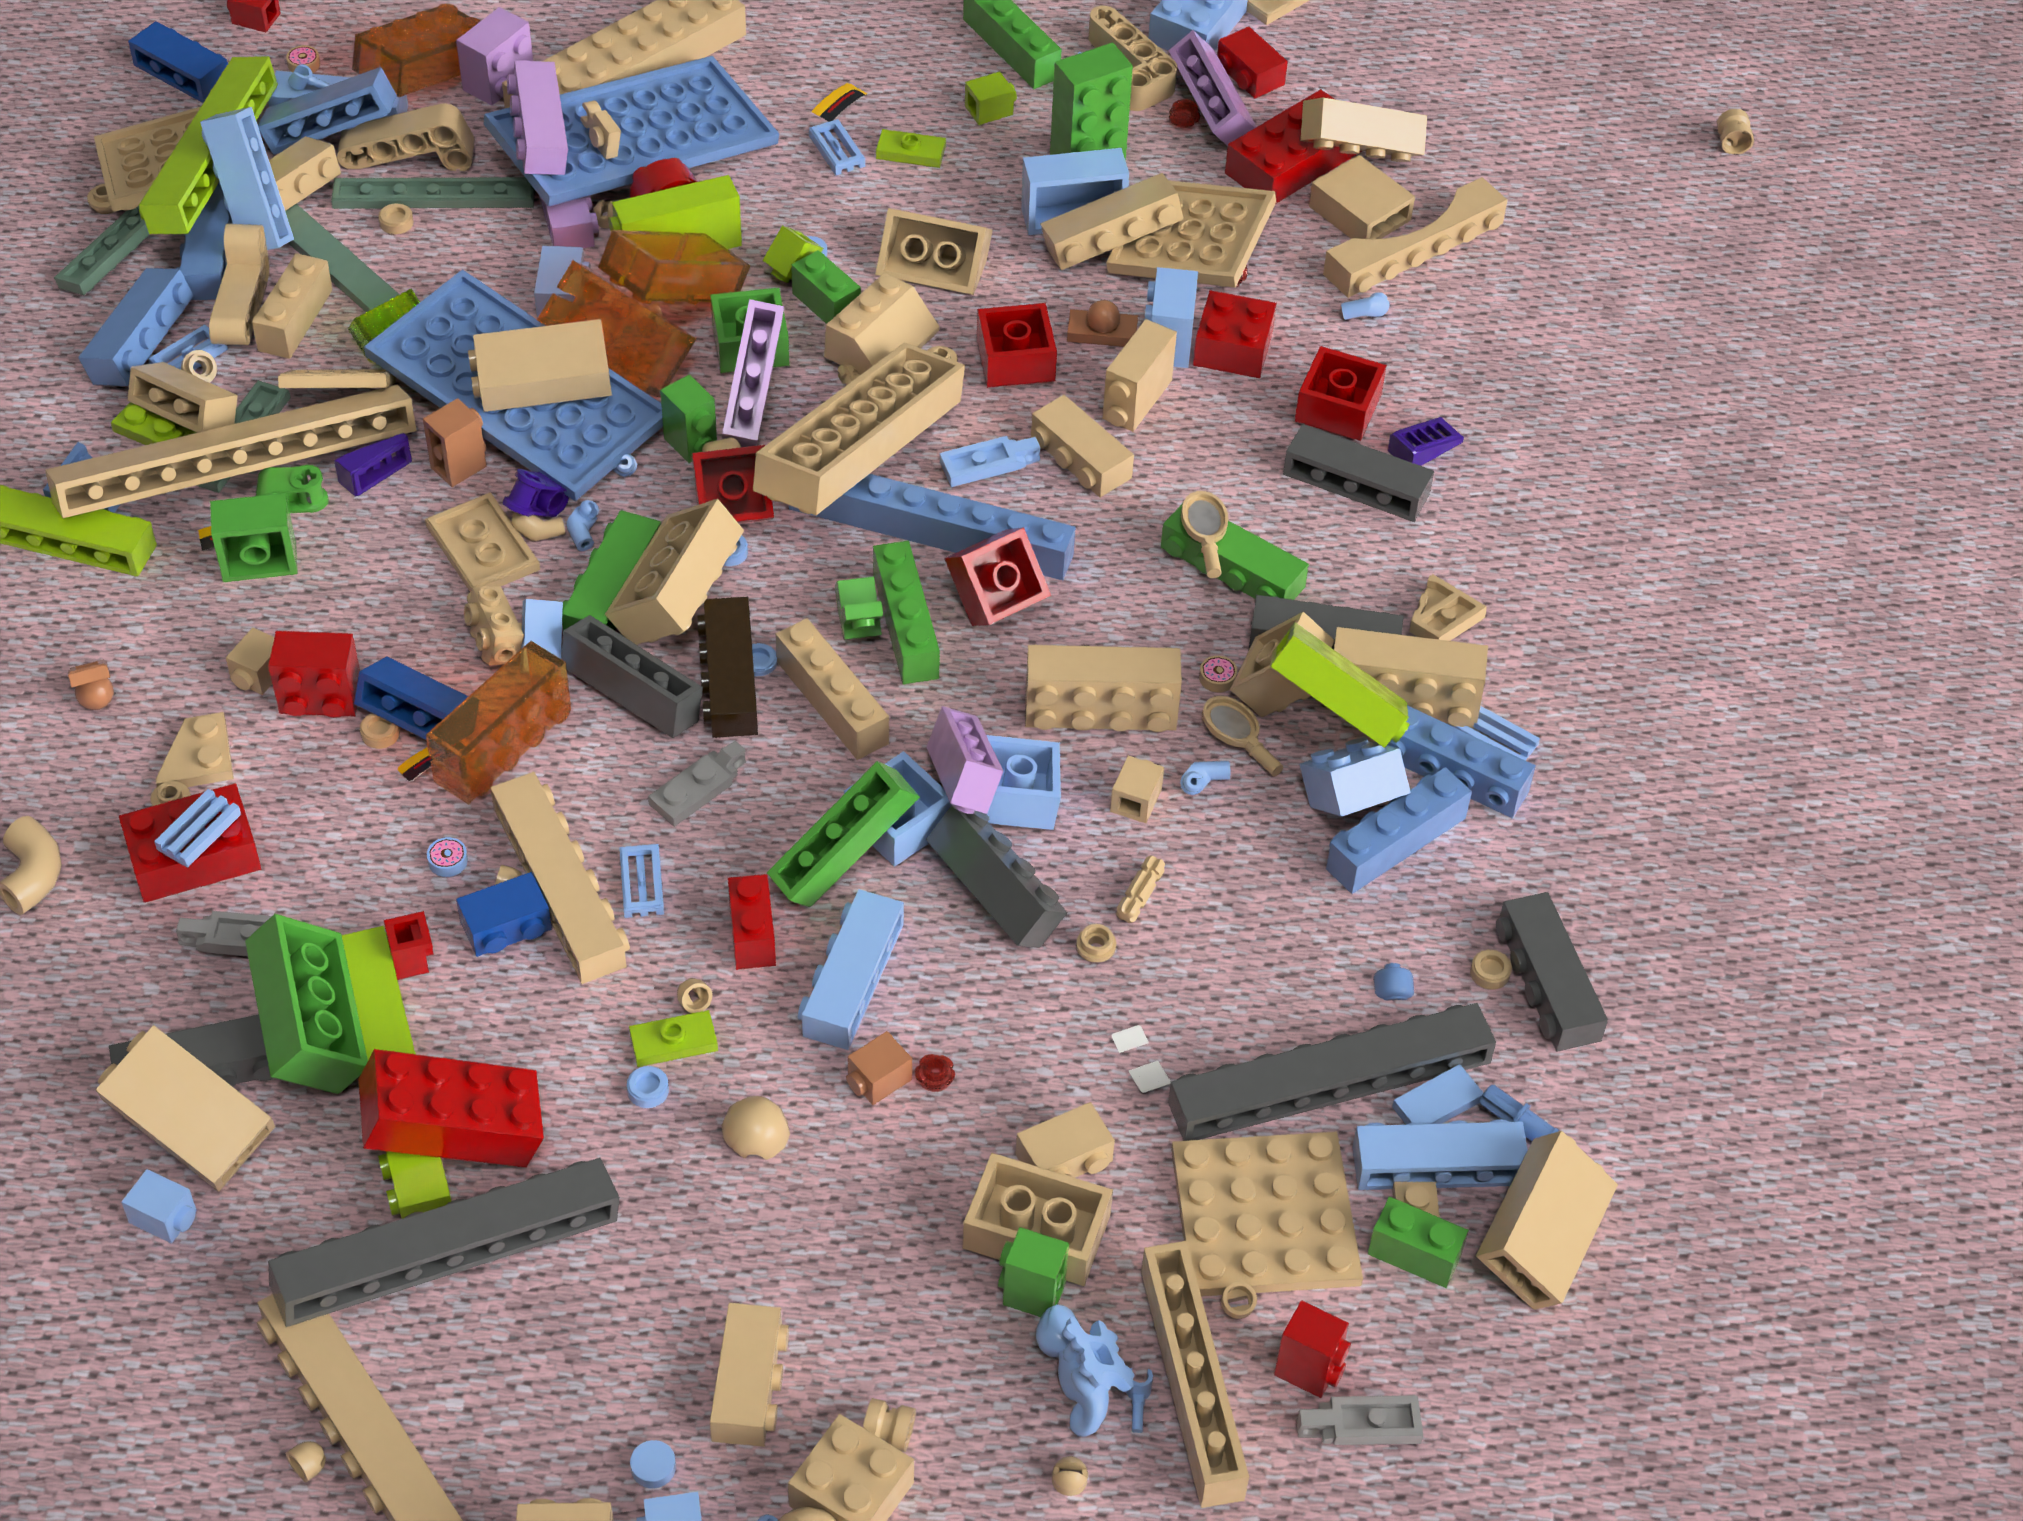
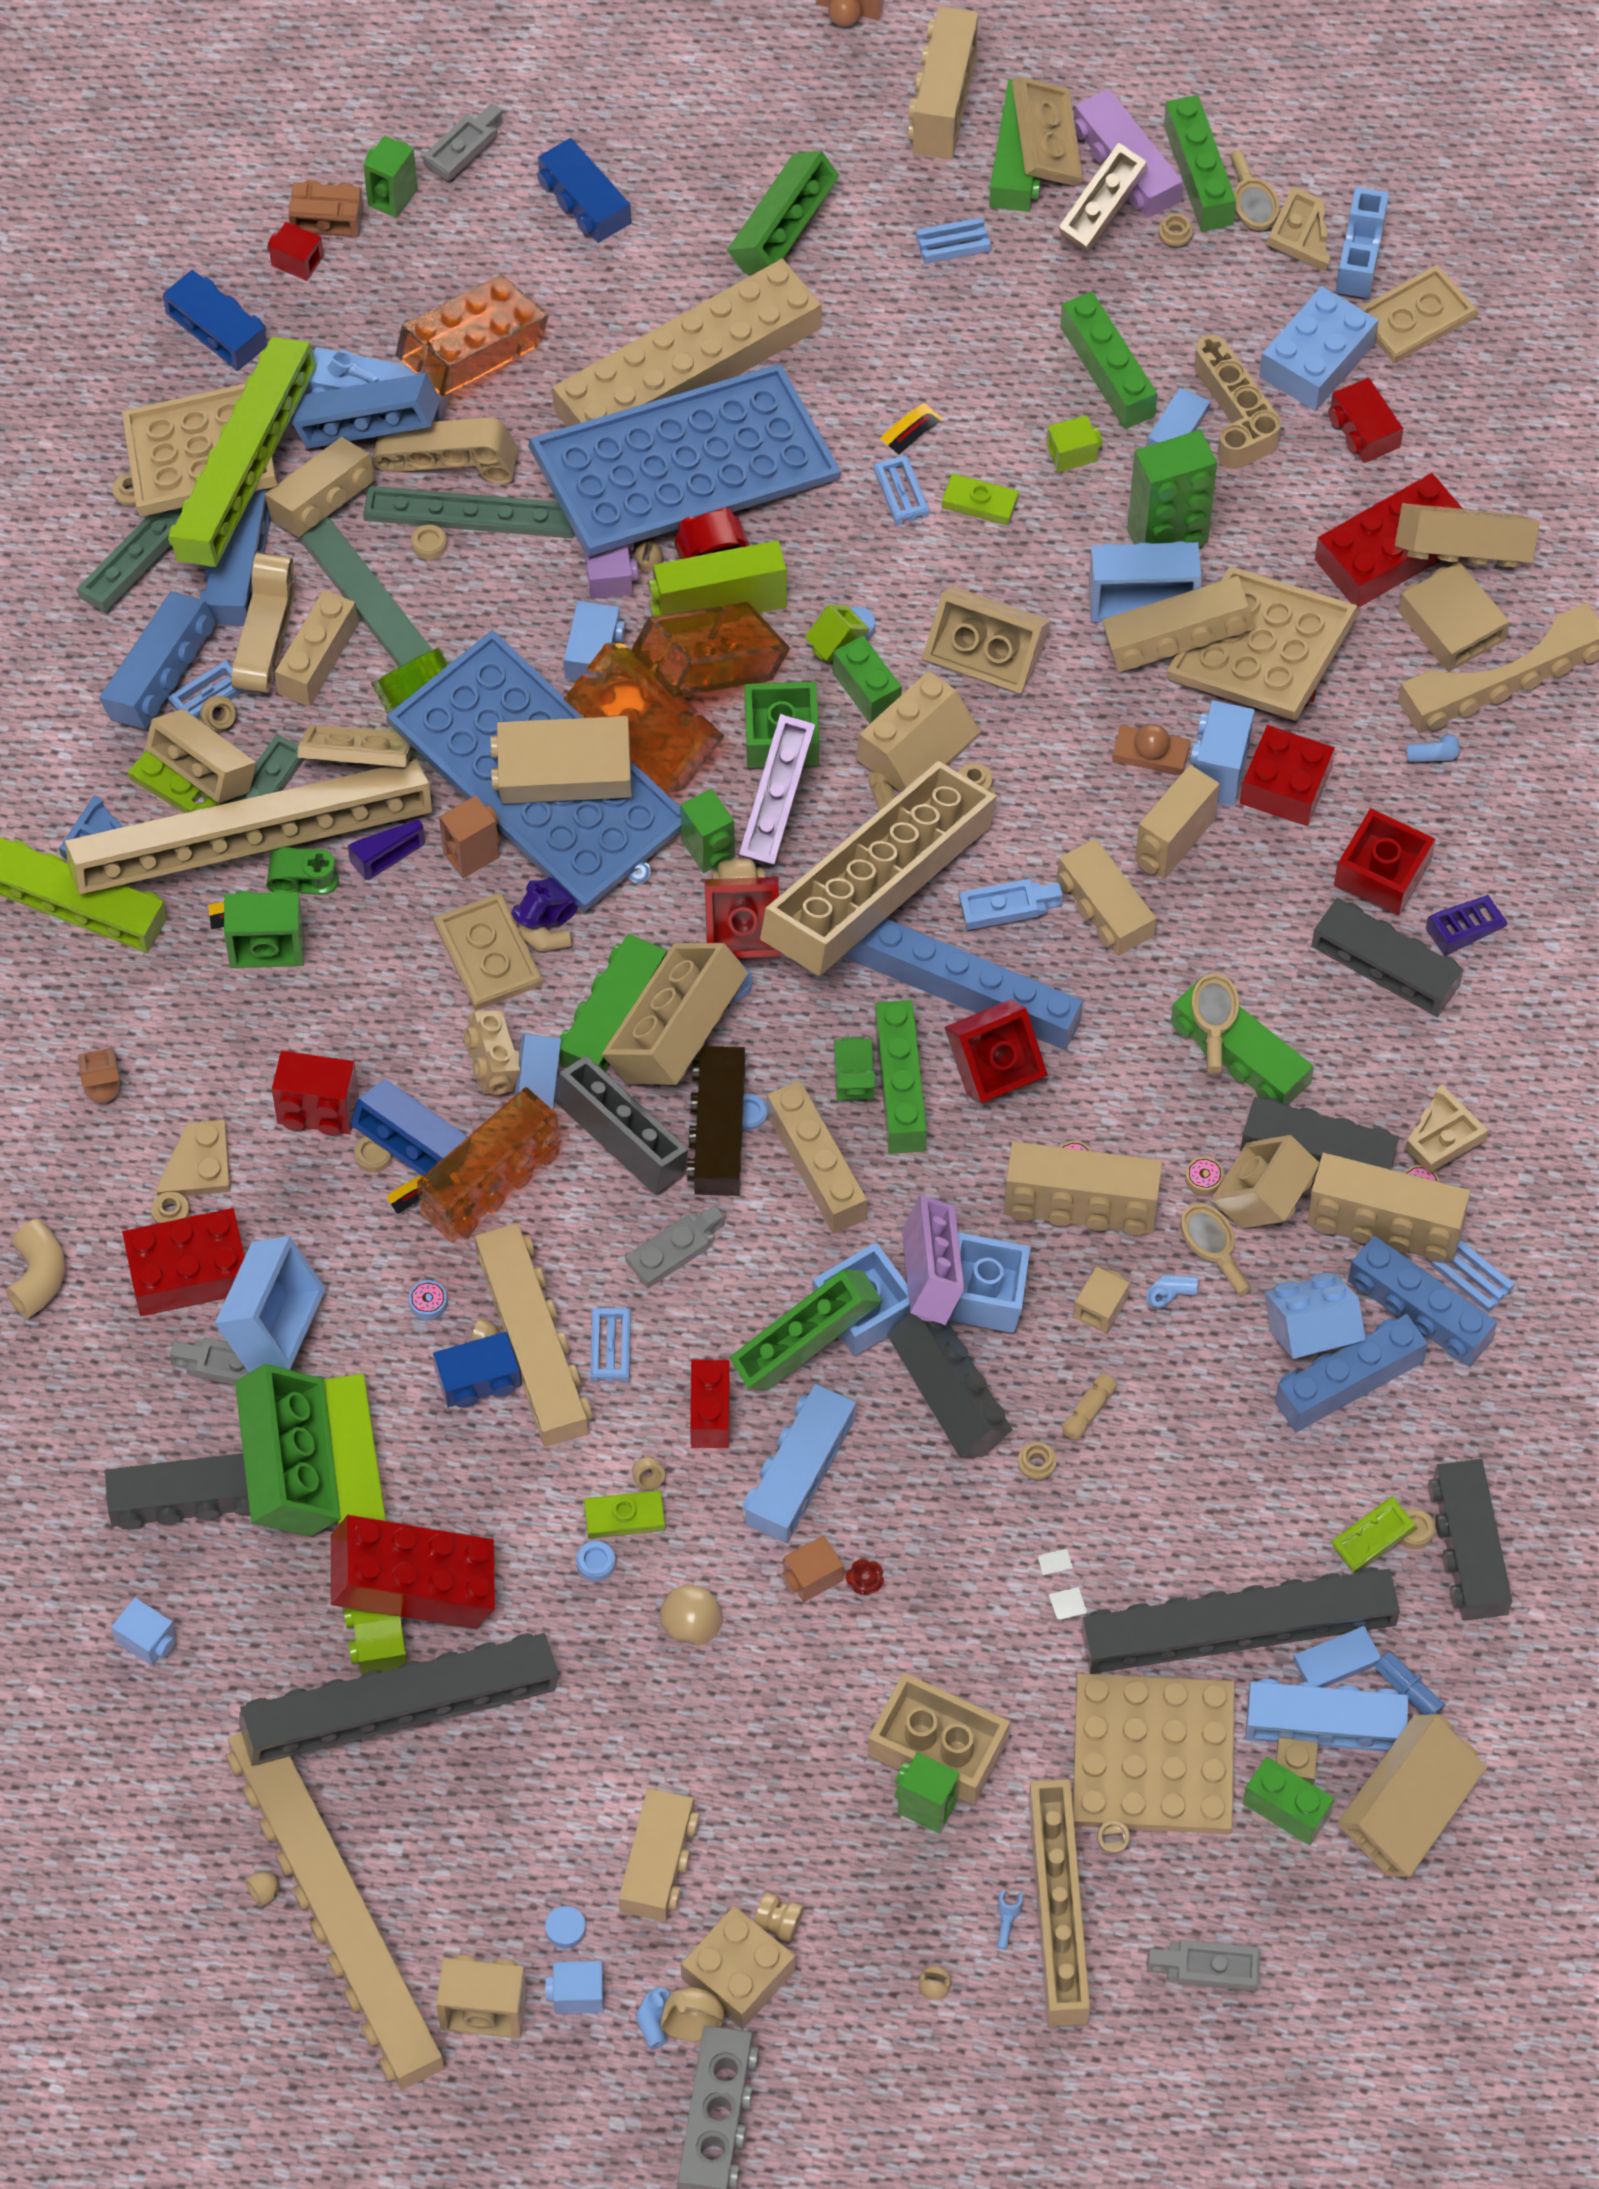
camera: 10 degrees right, 10 degrees up
(184, 1107) = (171, 1540): tan brick -> none
(192, 825) = (186, 1247): light blue tile -> none
(246, 174) = (279, 499): light blue brick -> none
(250, 662) = (255, 1067): tan brick -> none
(279, 863) = (270, 1304): none -> light blue piece
(303, 55) = (344, 324): tile -> none
(409, 944) = (385, 1394): red brick -> none
(489, 53) = (548, 348): lavender brick -> none
(538, 117) = (585, 451): lavender brick -> none
(581, 522) = (587, 937): light blue arm -> none
(603, 130) = (652, 471): tan plate -> none
(1016, 345) = (1055, 769): red brick -> none
(1068, 1143) = (977, 1667): tan brick -> none
(1085, 1366) = (963, 1882): light blue animal -> none
(1184, 113) = (1284, 474): clear red plate -> none
(1211, 88) = (1316, 458): lavender brick -> none
(1313, 1350) = (1170, 1895): red brick -> none
(1340, 685) = (1310, 1226): lime brick -> none
(1393, 982) = (1318, 1532): medium blue piece -> none
(1452, 976) = (1373, 1535): none -> lime plate

